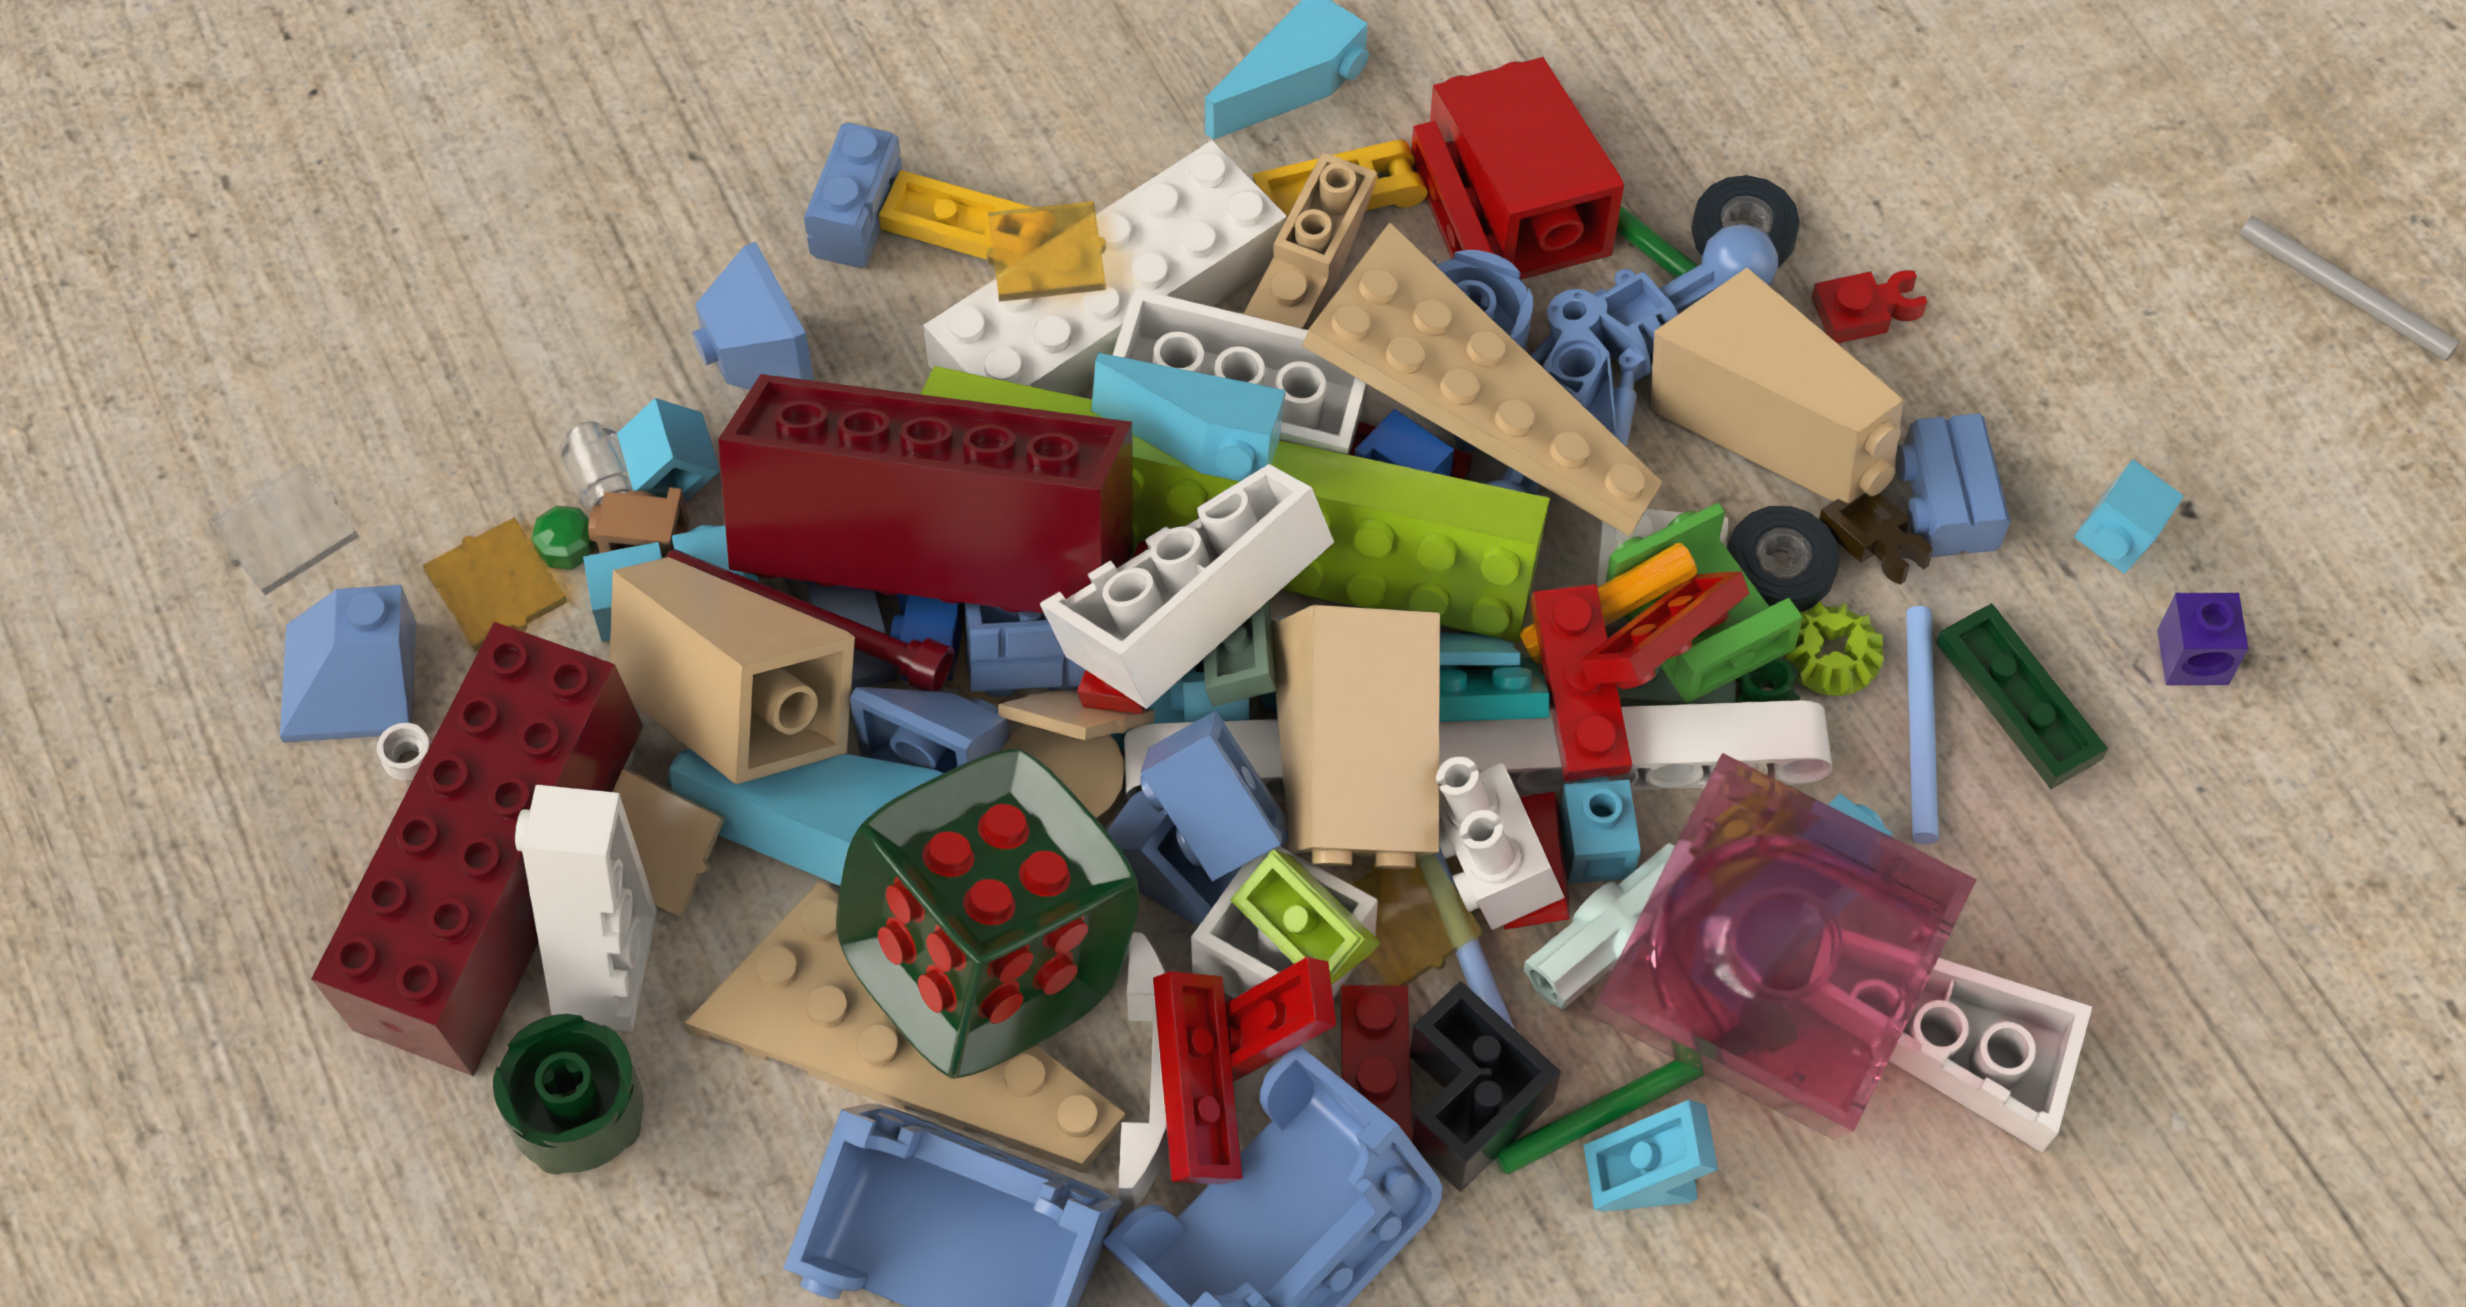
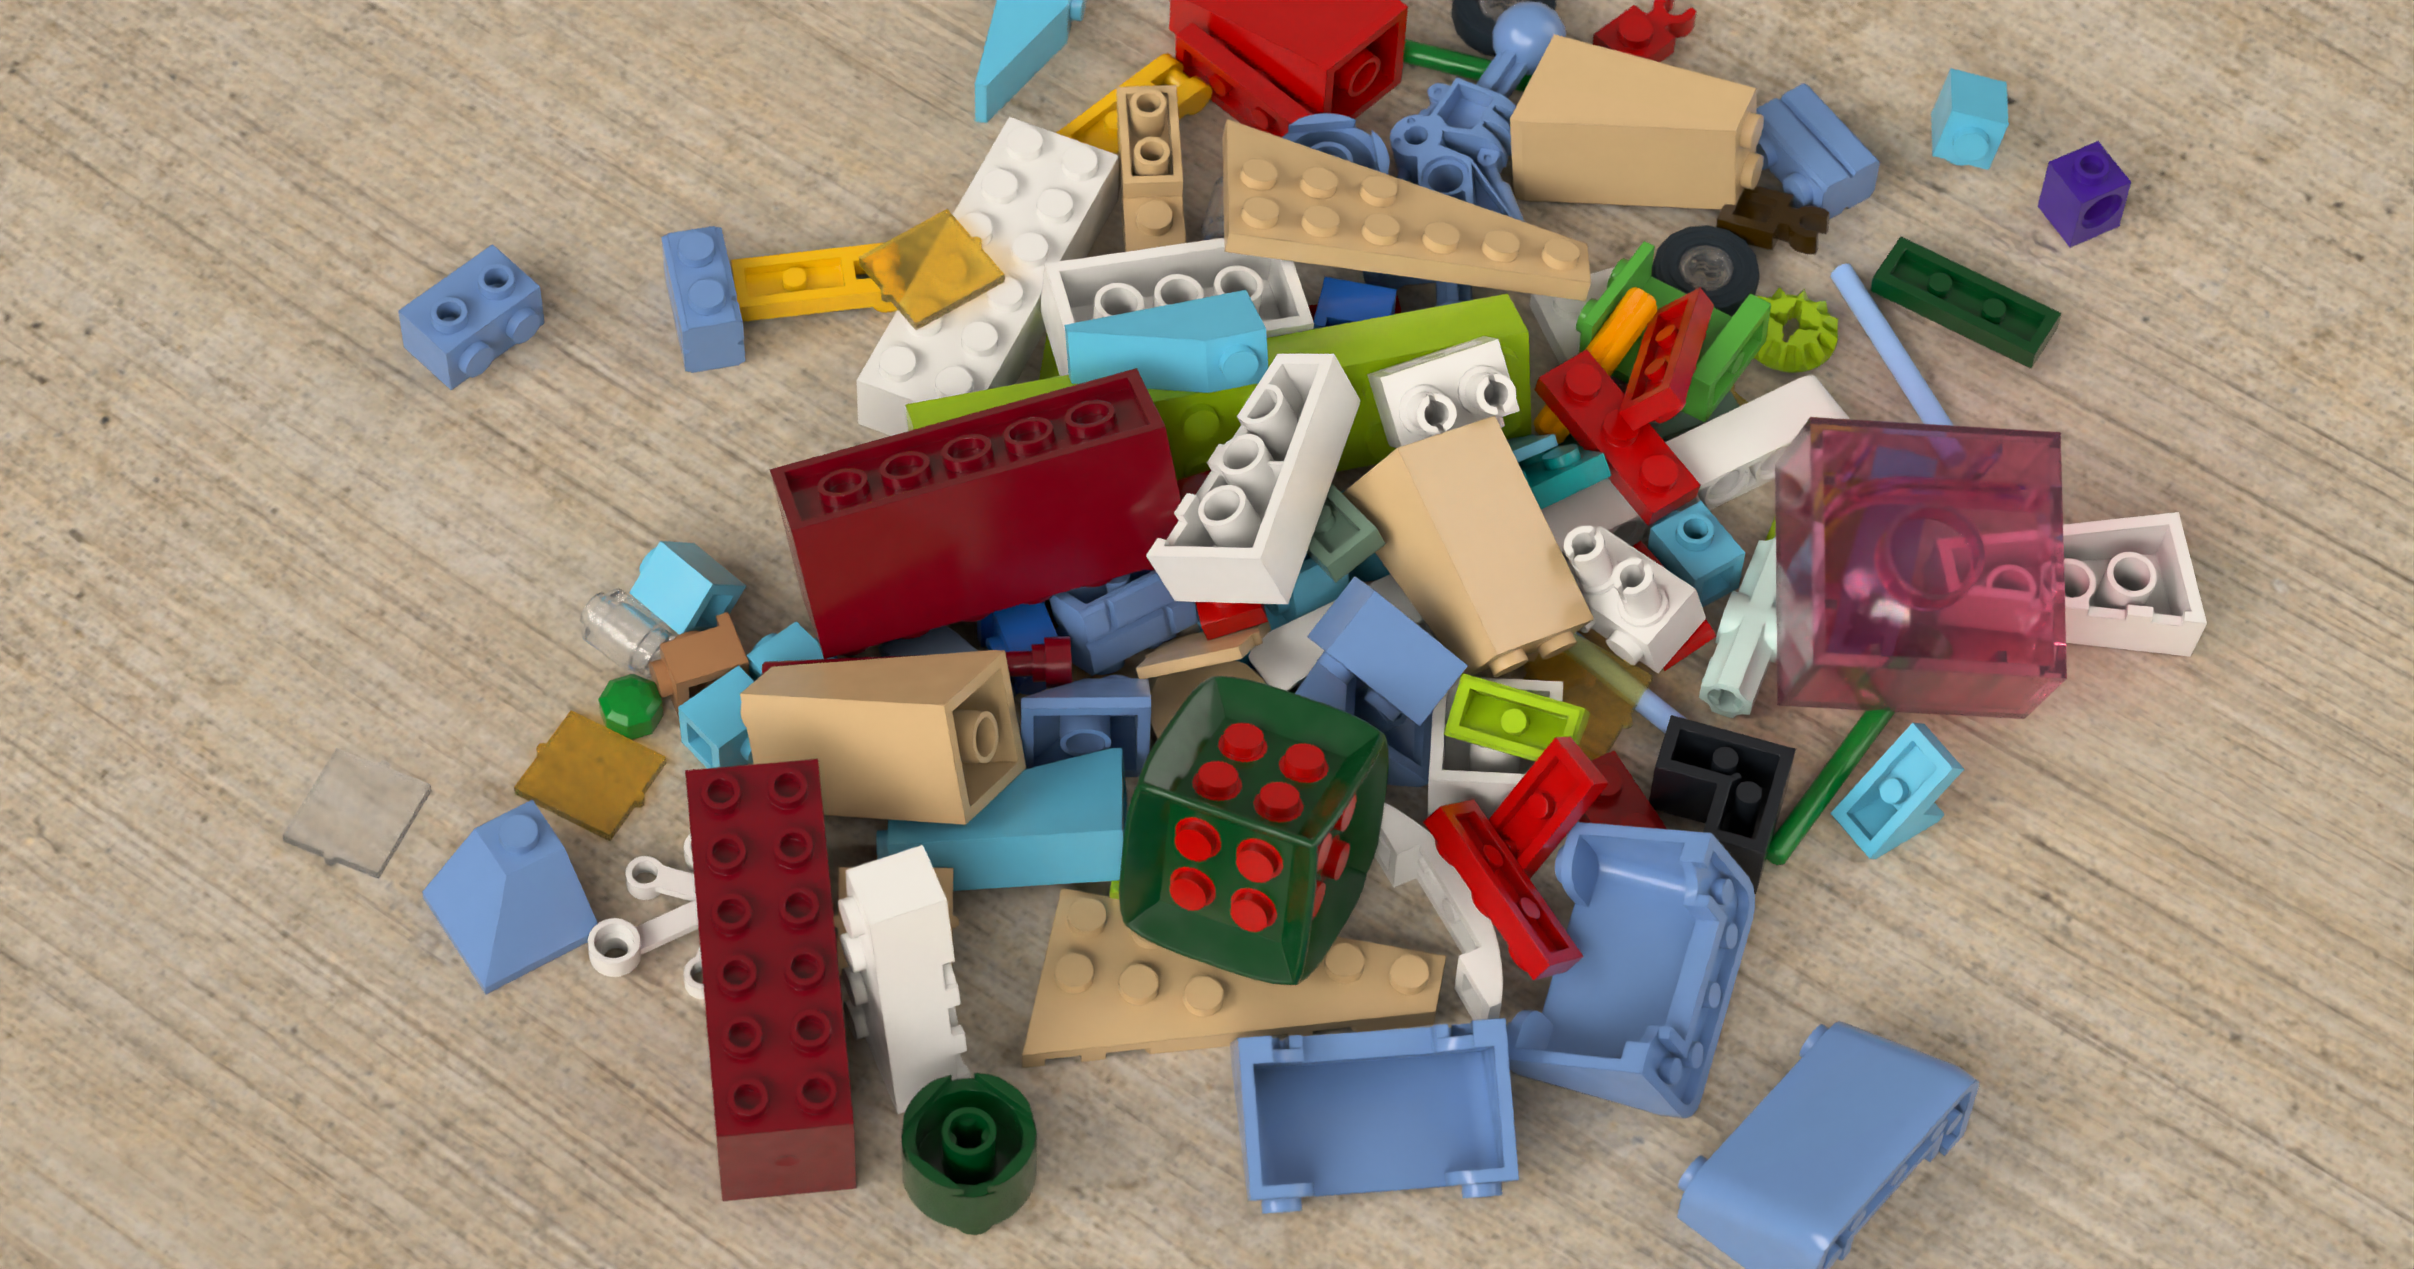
camera: 30 degrees left, 5 degrees down
(653, 128) = (472, 317): none -> medium blue brick
(750, 324) = (702, 449): medium blue slope -> none
(1419, 569) = (1444, 391): none -> white brick
(1776, 675) = (1759, 378): dark green plate -> none

